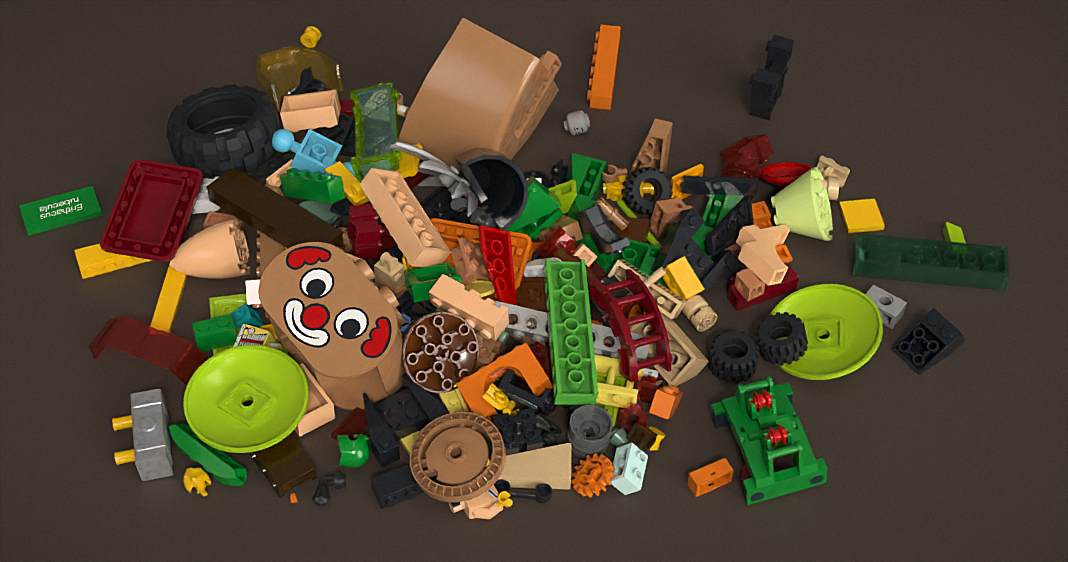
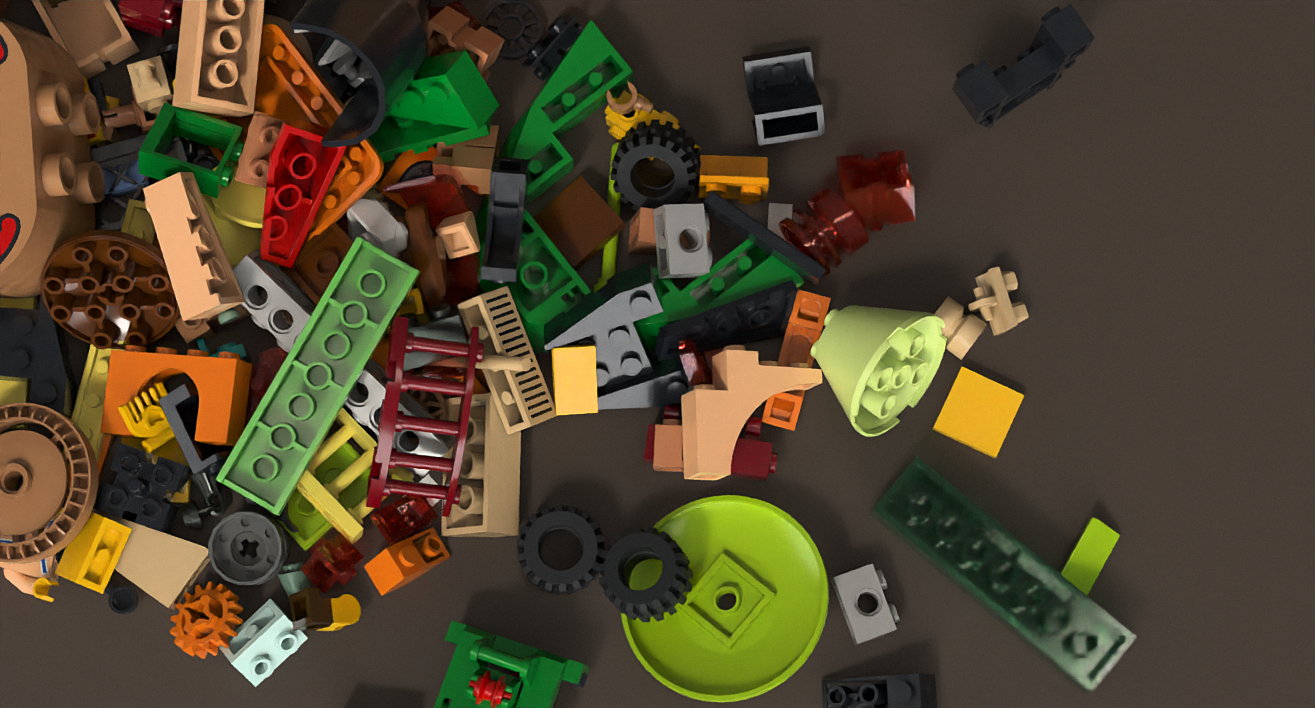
camera: 35 degrees right, 30 degrees up
(516, 470) = (94, 553): none -> yellow panel
(566, 193) = (513, 93): lime slope -> none
(611, 214) = (561, 181): medium nougat pin -> none
(655, 147) = (709, 111): medium nougat wedge -> none
(679, 152) = (783, 96): none -> black piece
(682, 197) = (672, 257): none -> light grey brick
(699, 313) = (571, 440): tan wheel -> none
(730, 242) = (694, 363): none -> clear red tile
(783, 173) = (914, 263): red dish -> none

